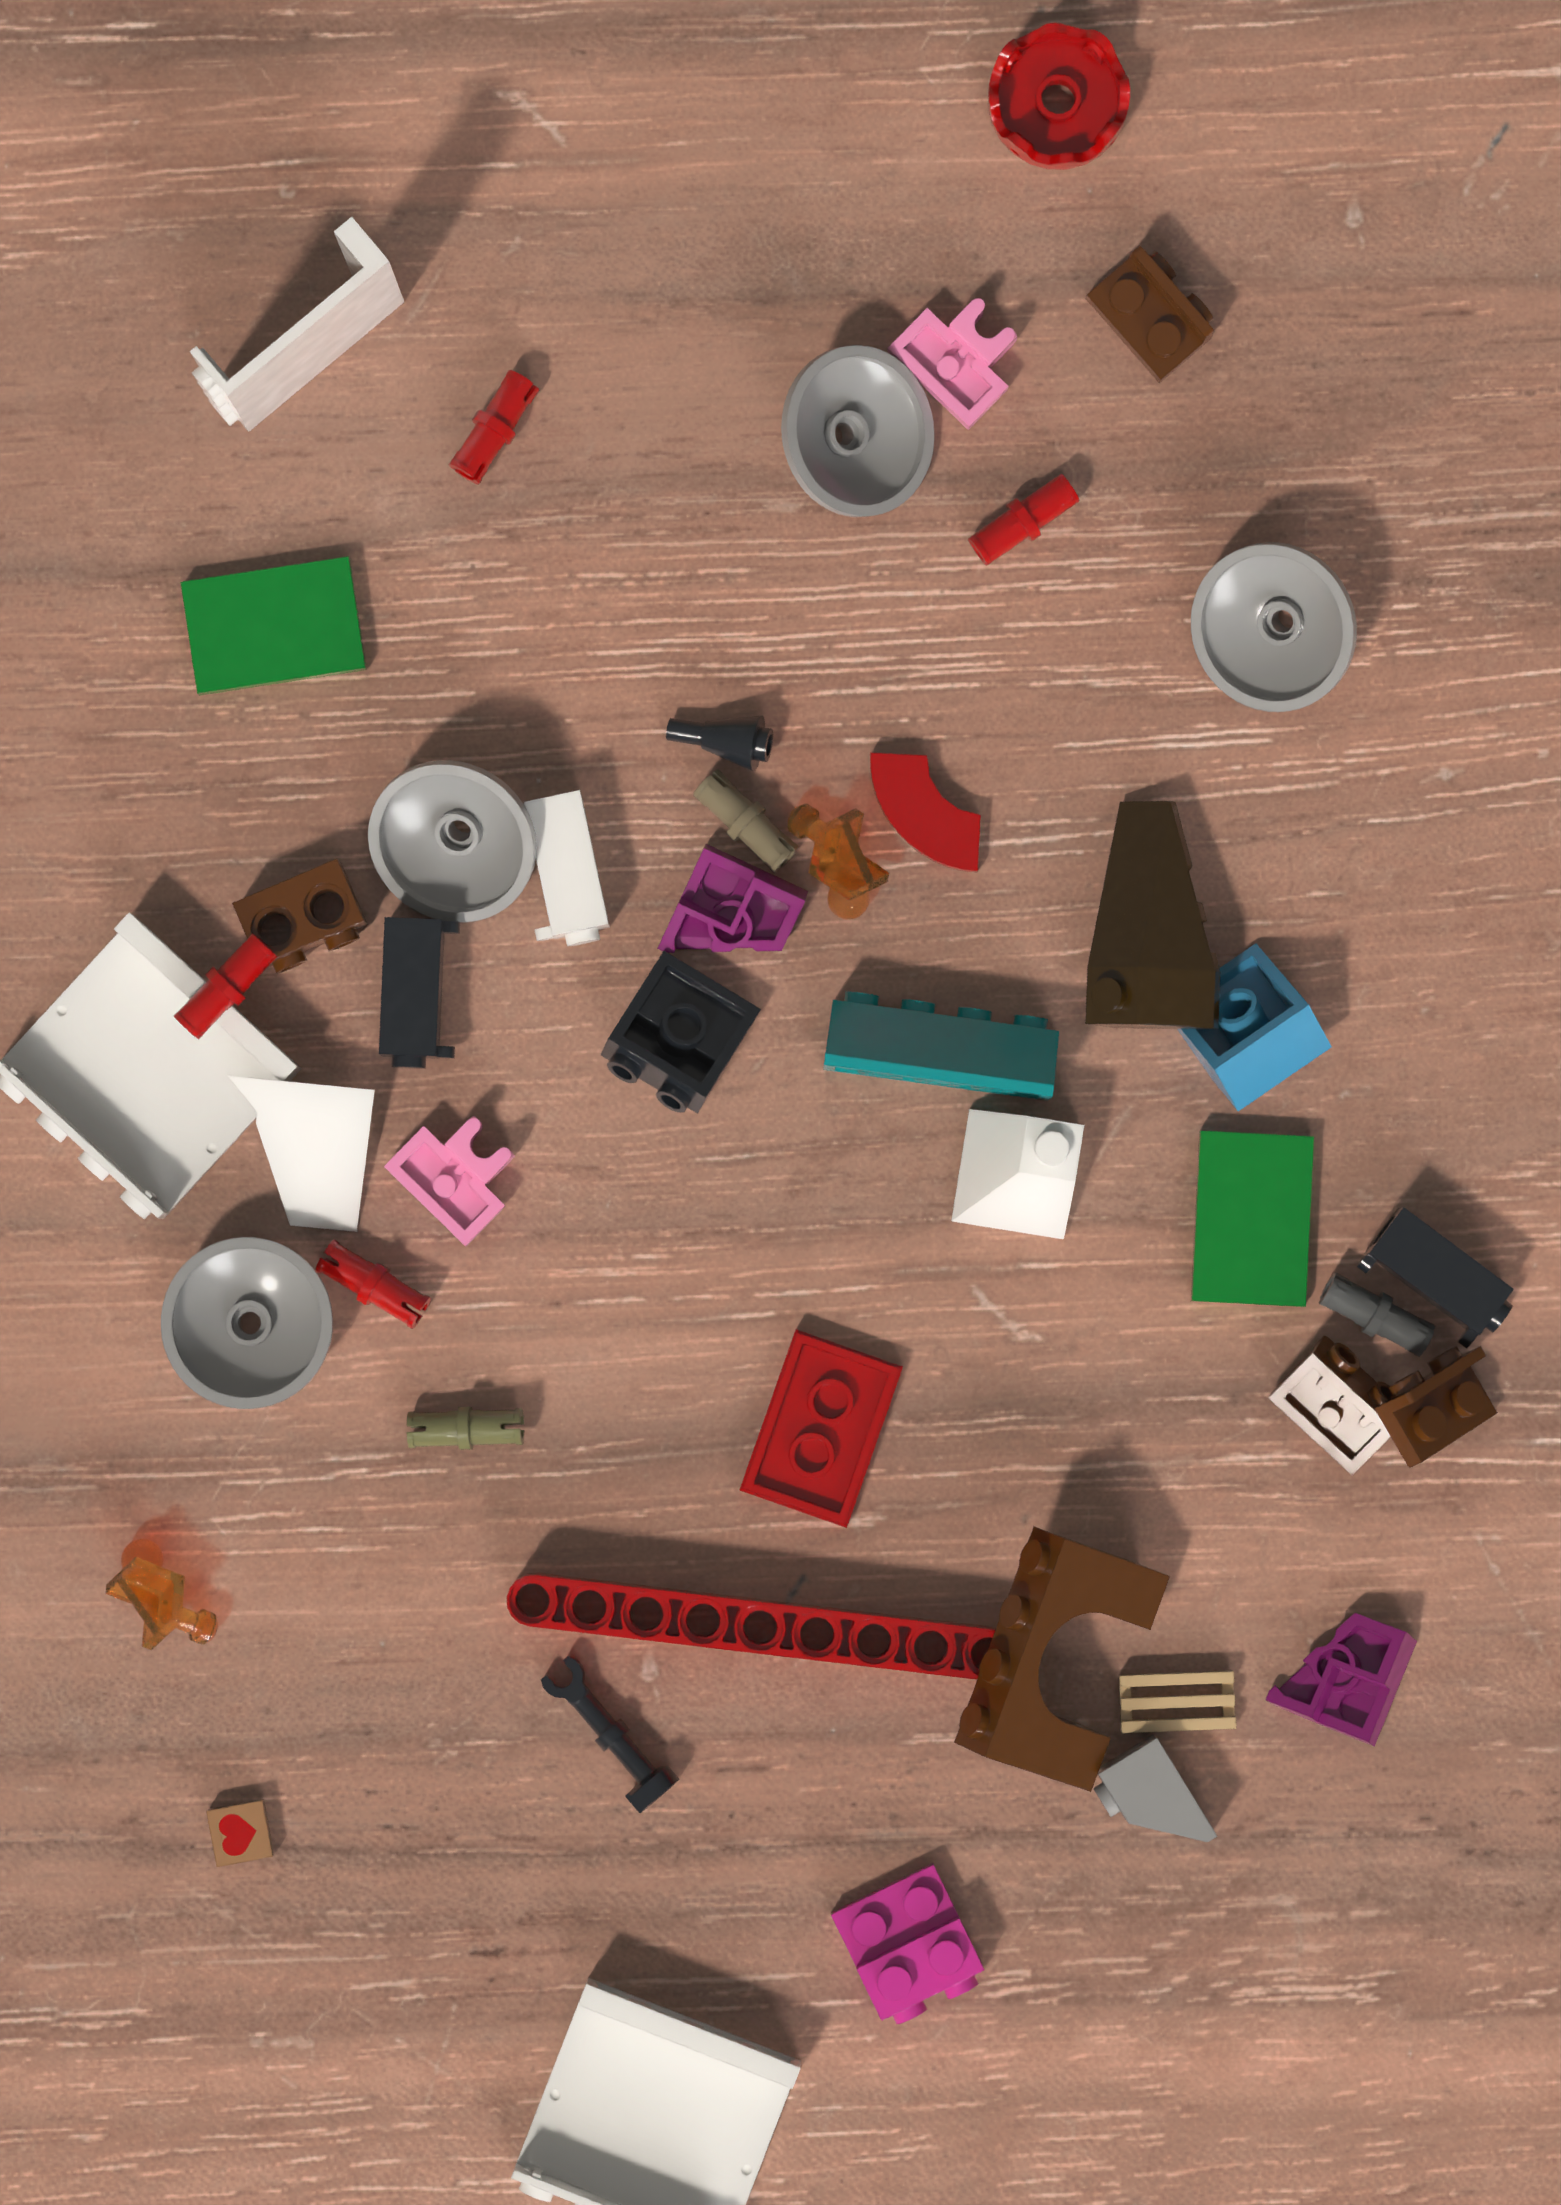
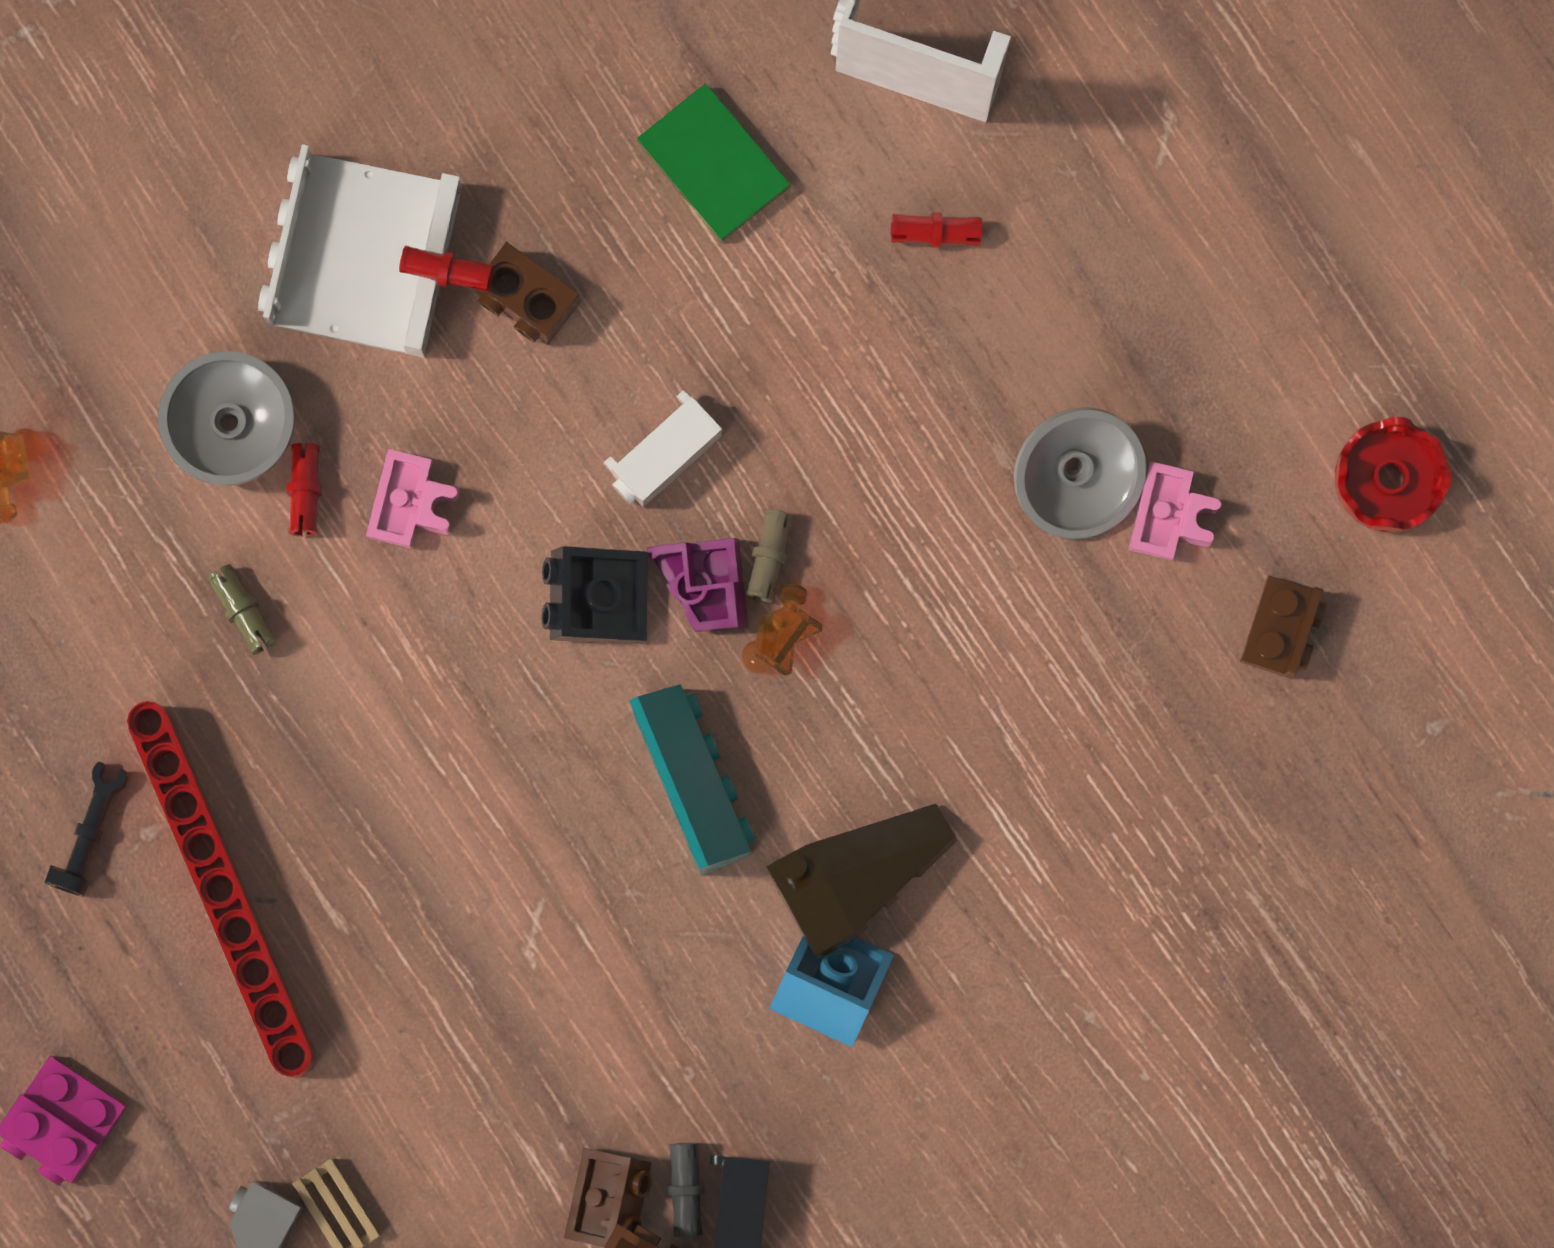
camera: 55 degrees right, 5 degrees down
(314, 1147) = (373, 394): white sticker -> none
(413, 990) = (519, 399): black brick -> none
(433, 862) = (617, 359): light grey dish -> none
(735, 739) = (821, 517): black cone -> none
(821, 1428) = (383, 852): red tile -> none
(921, 813) = (846, 673): red tile -> none
(1006, 1710) = (363, 1070): reddish brown arch -> none
(1017, 1173) = (637, 883): white slope -> none
(1023, 519) = (1089, 623): red pin -> none
(1247, 646) = (1097, 823): light grey dish -> none
(1252, 1218) = (701, 1064): green tile -> none

